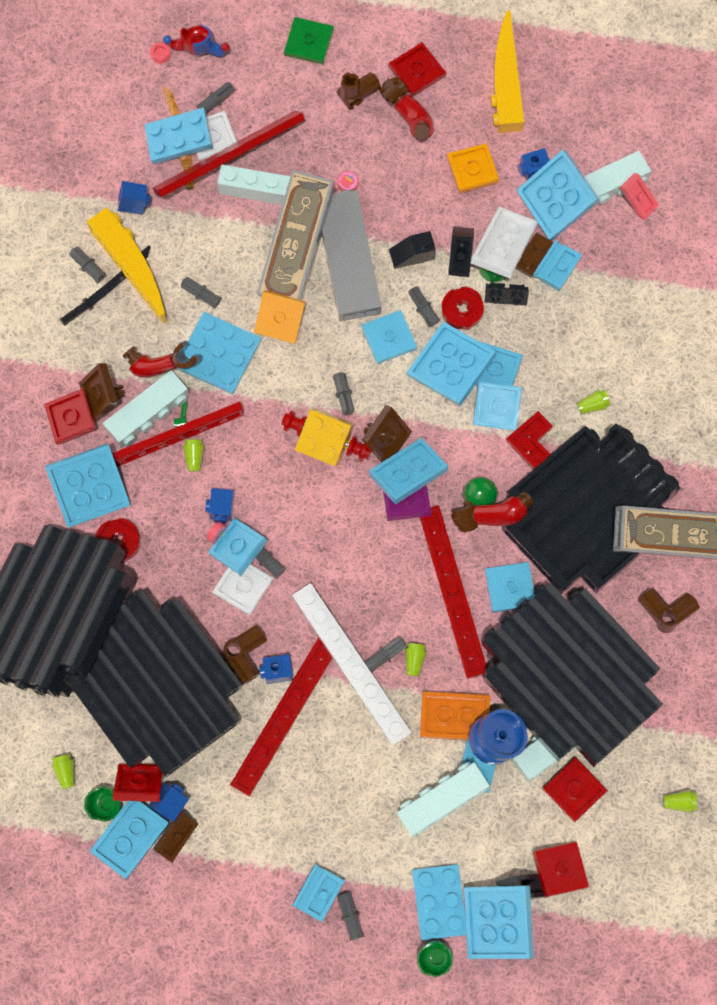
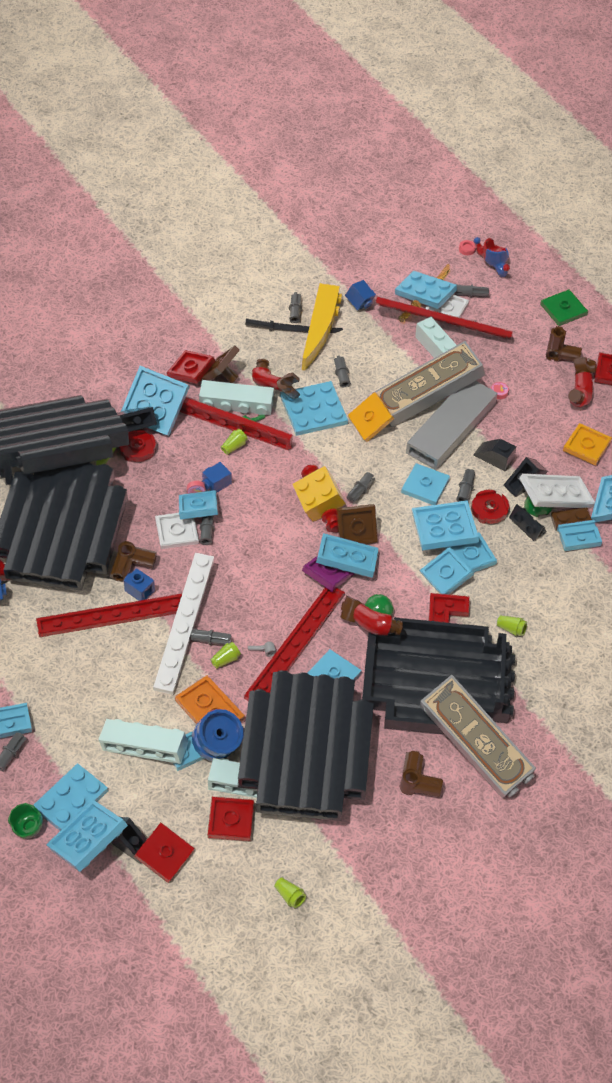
camera: 45 degrees right, 20 degrees down
(93, 518) = (138, 418): none -> black slope
(439, 616) = (268, 647): none -> light grey hand

